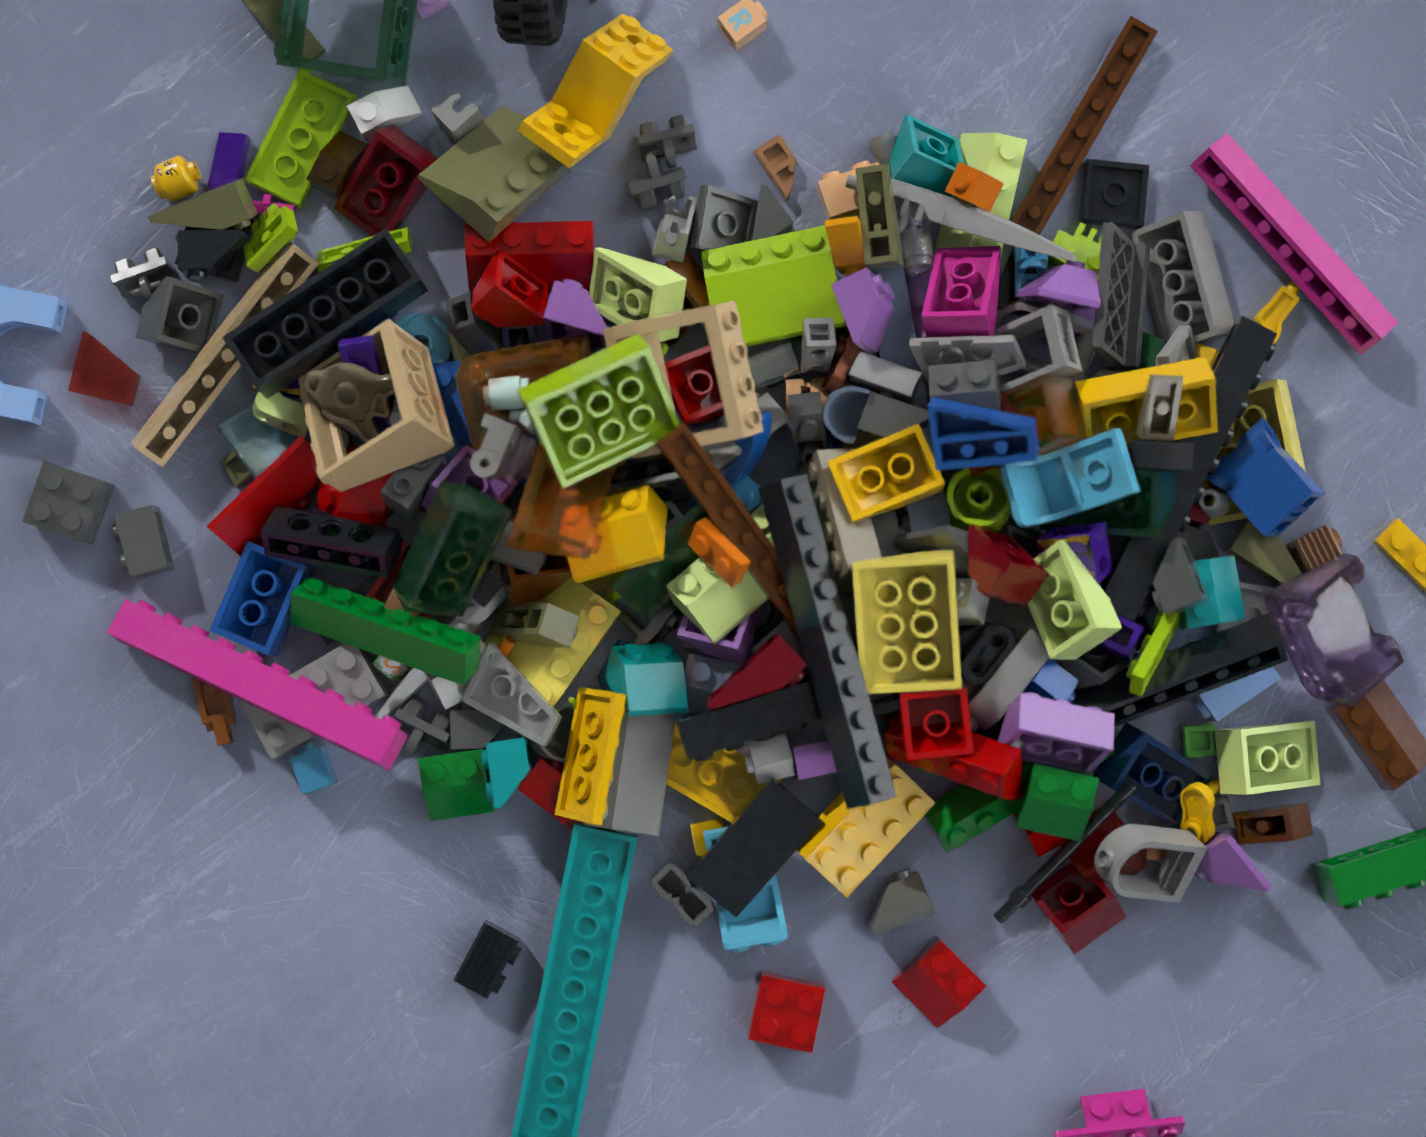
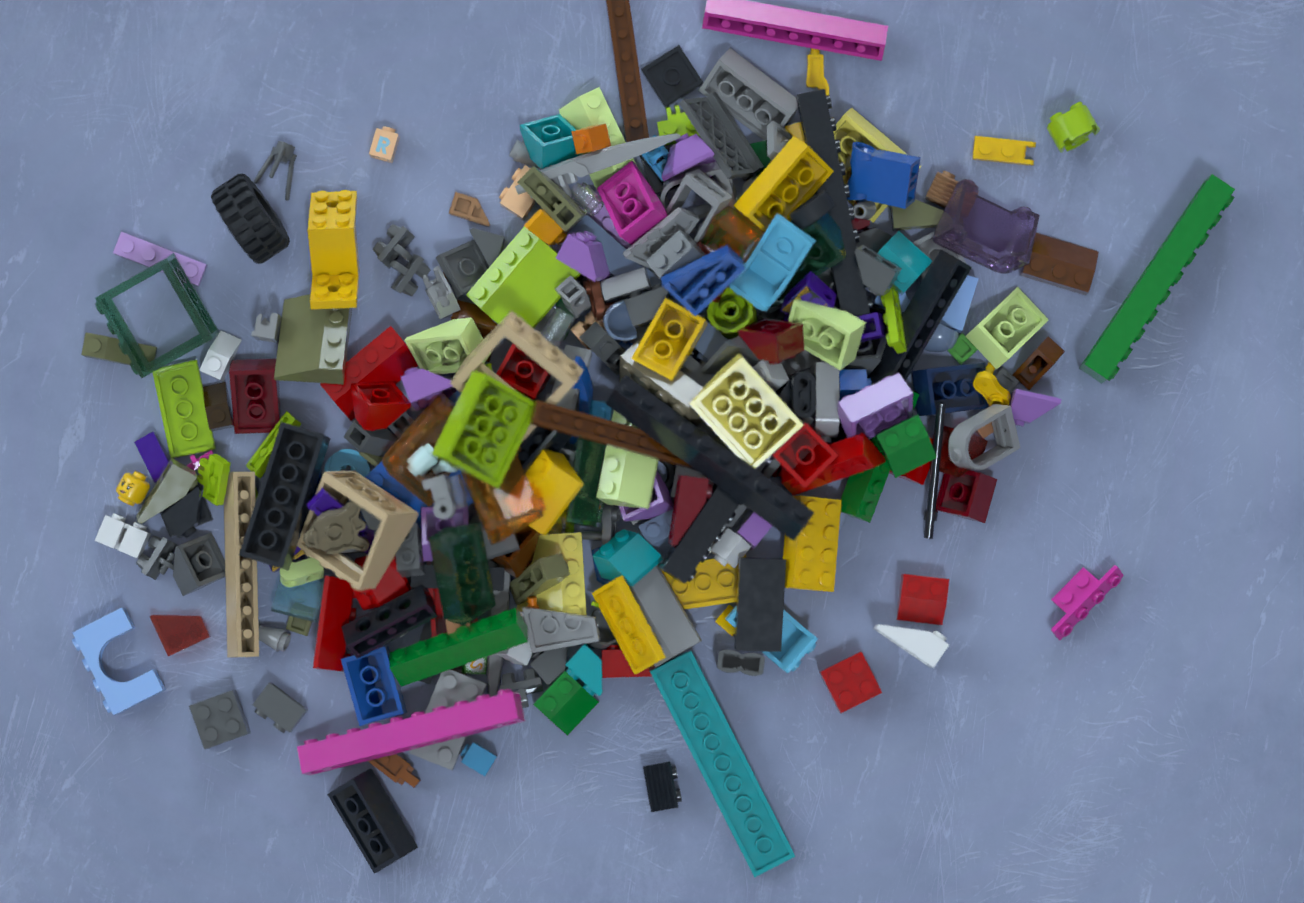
camera: 40 degrees left, 0 degrees up
(126, 226) = (122, 536): none -> white piece
(145, 746) = (372, 820): none -> black slope
(198, 461) = (274, 638): none -> light grey cone
(718, 552) = (611, 456): orange plate -> none
(899, 1036) = (921, 644): none -> white slope
(900, 902) = (865, 570): dark grey slope -> none
(1160, 408) = (790, 185): dark tan slope -> none
(1188, 714) = (942, 339): none -> sand blue helmet

